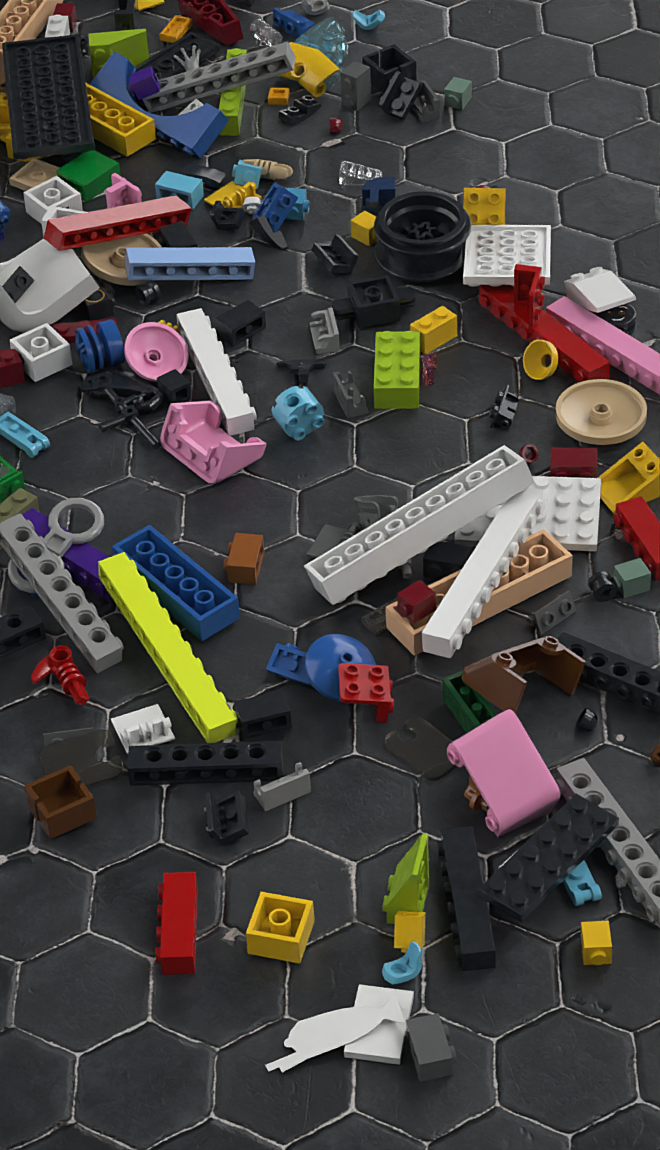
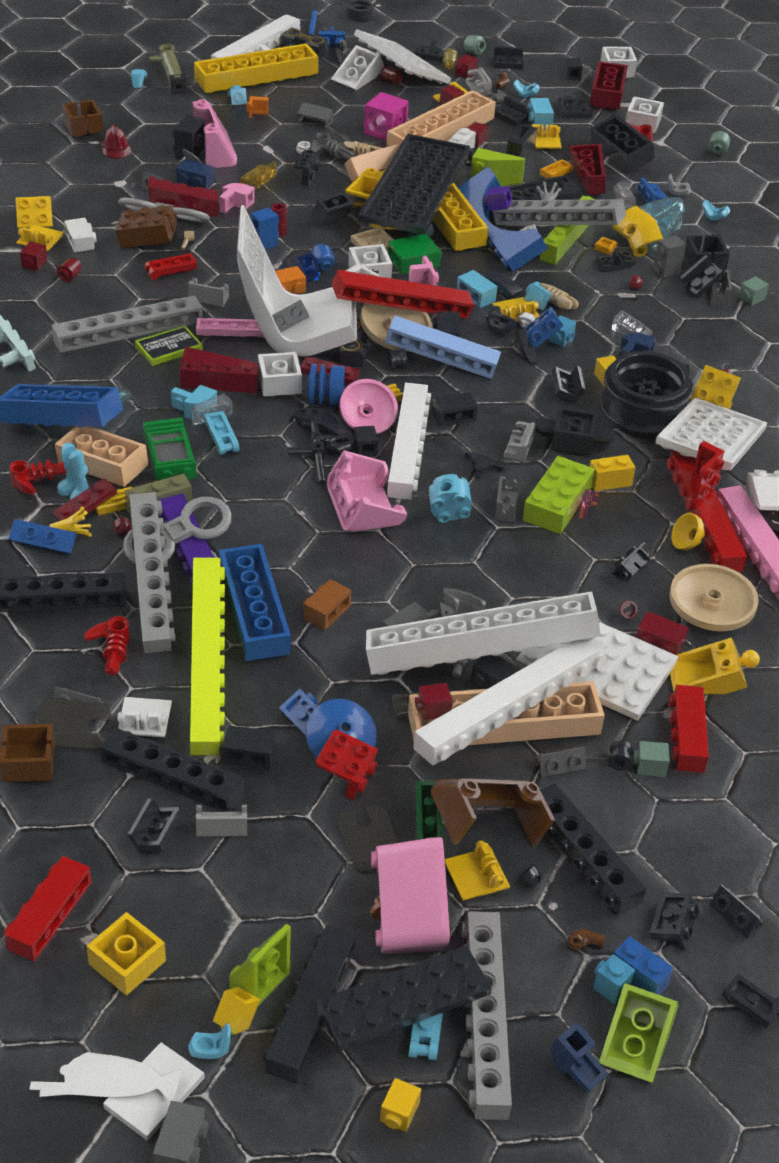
camera: 20 degrees right, 0 degrees up
(545, 732) = (476, 872): none -> yellow hinge

